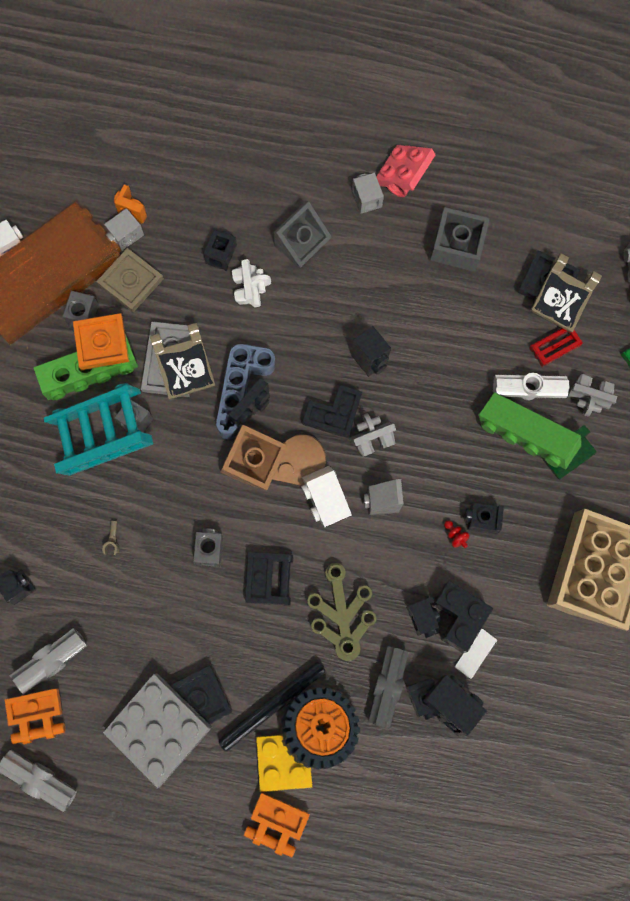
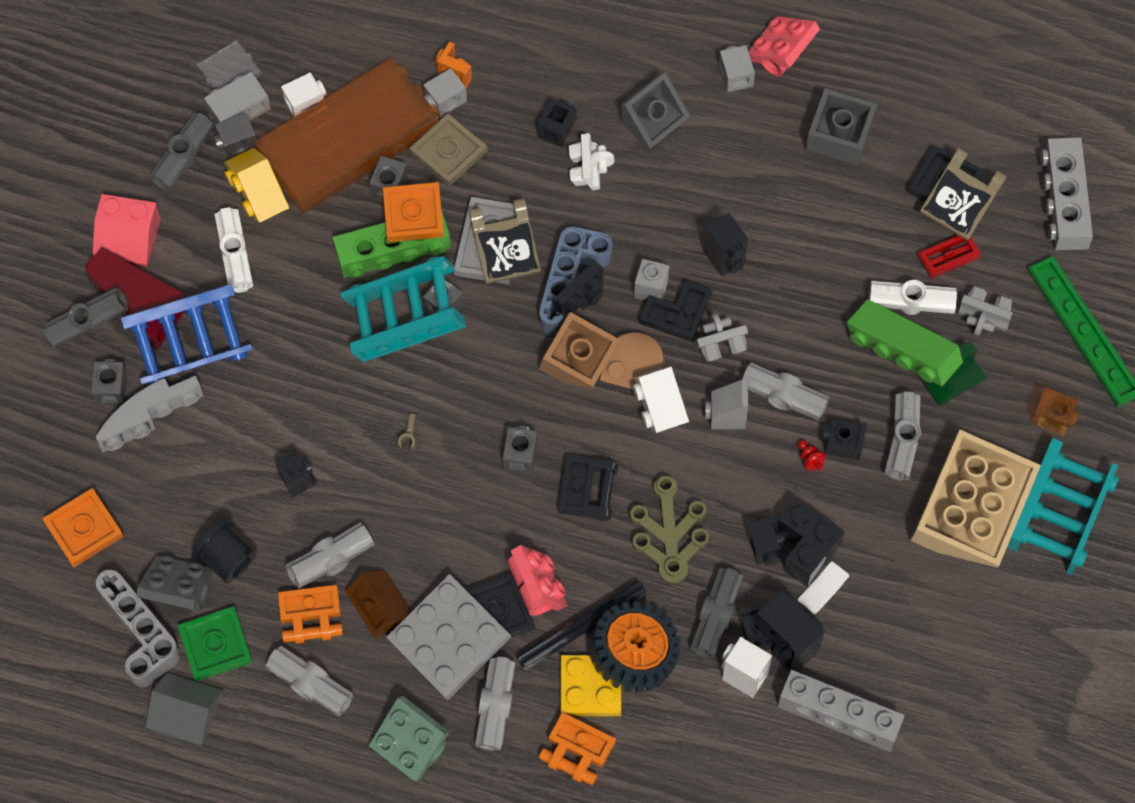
camera: 10 degrees right, 10 degrees down
(95, 699) = (377, 601): none -> reddish brown panel
(127, 831) = (409, 739): none -> sand green plate
(202, 790) = (495, 704): none -> light grey piece
(231, 671) = (537, 580): none -> coral plate
(310, 387) = (651, 280): none -> light grey brick
(418, 741) = (745, 666): none -> white brick
(430, 478) = (785, 391): none -> light grey piece
(503, 772) = (840, 711): none -> light grey brick
(534, 496) = (905, 421): none -> light grey piece

